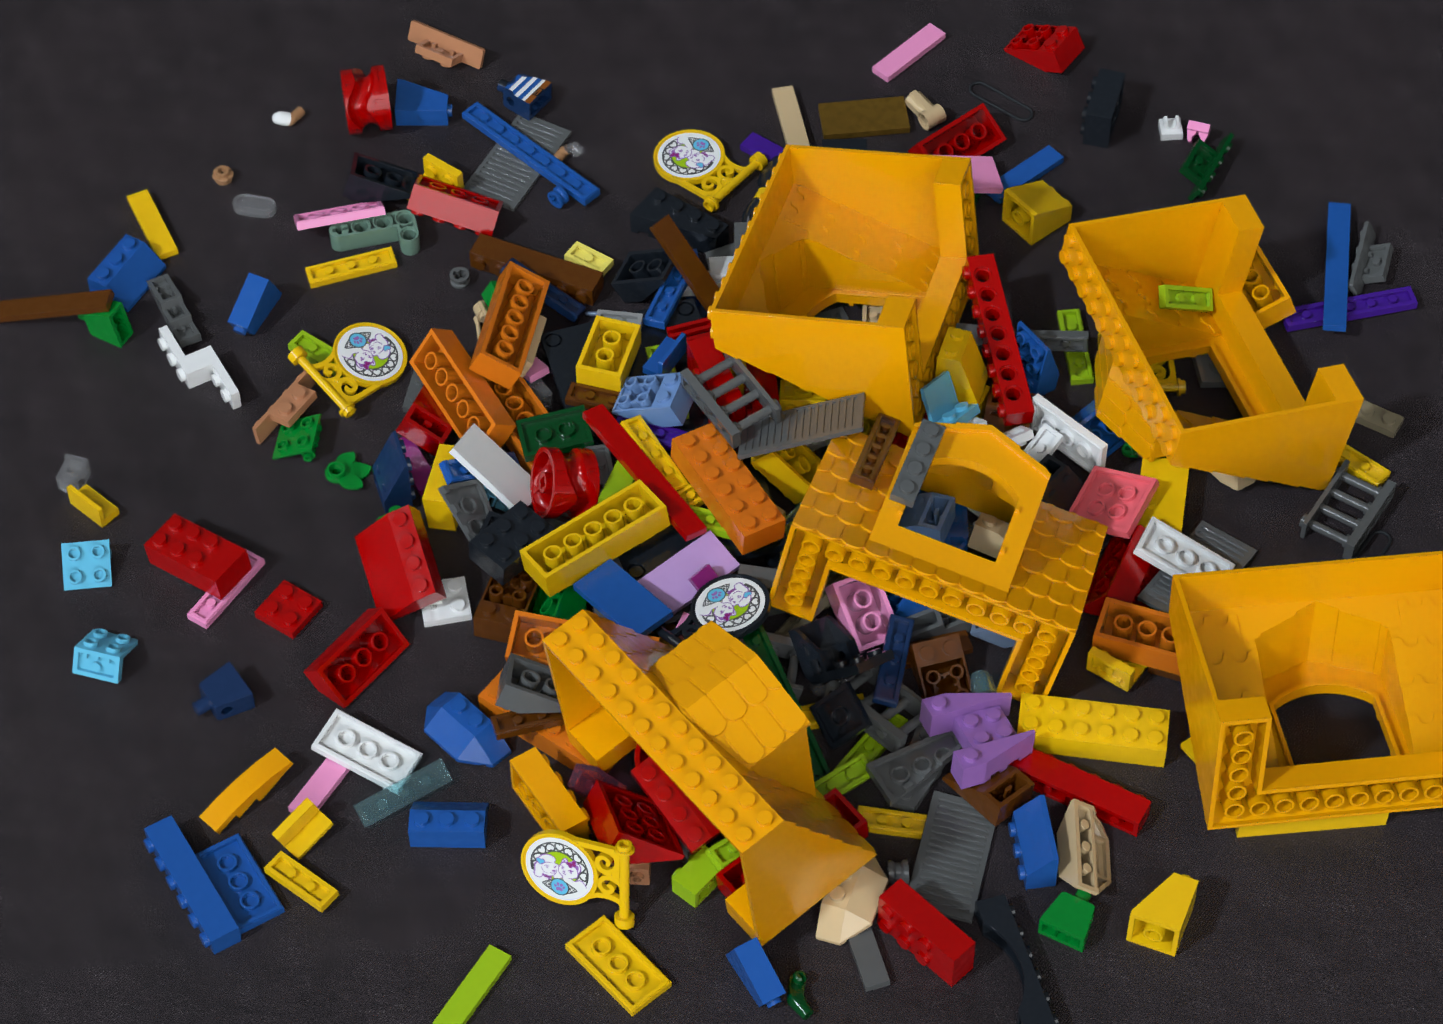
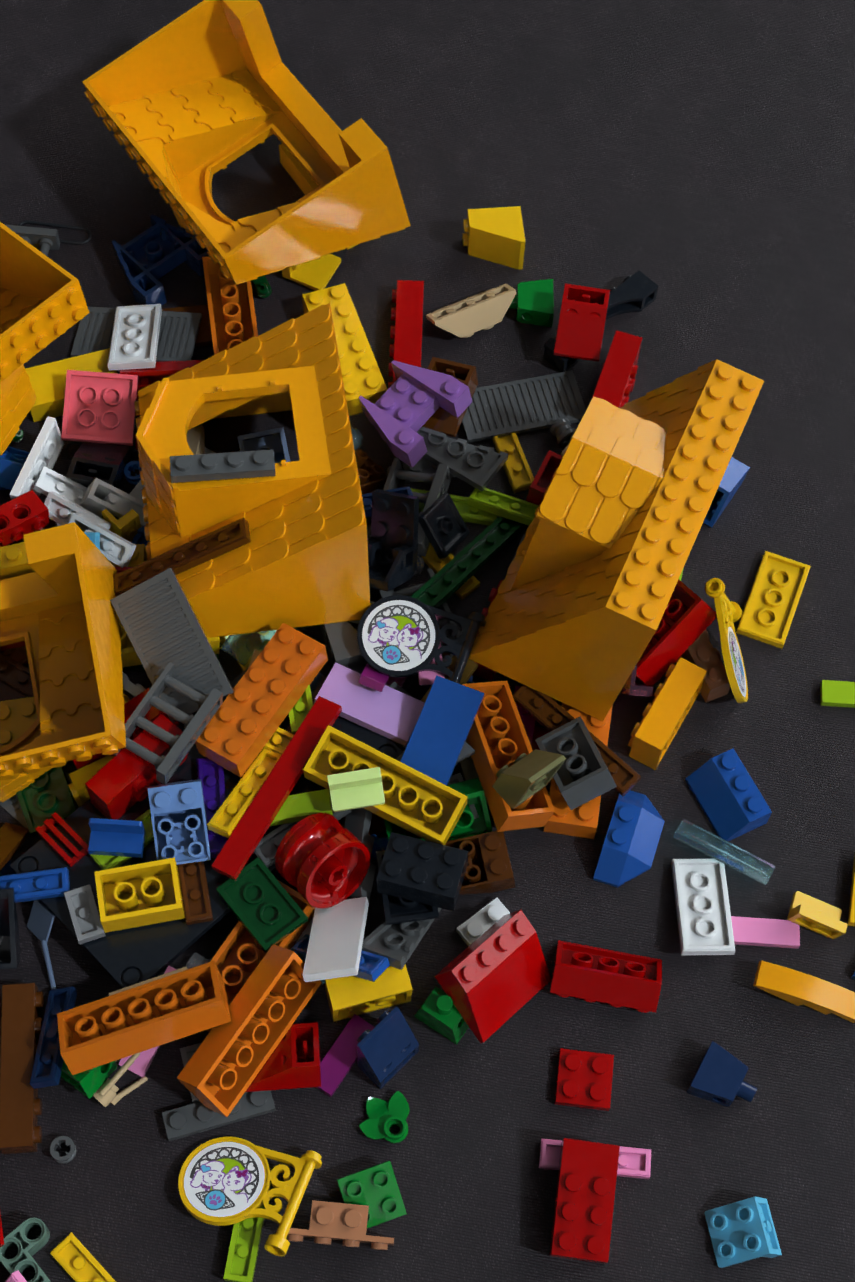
camera: 120 degrees left, 10 degrees up
(536, 624) = (527, 776): none -> olive slope
(598, 503) = (356, 789): none -> yellowish green panel
(1006, 925) = (581, 322): none -> red slope
(1034, 844) = (485, 340): blue slope -> none

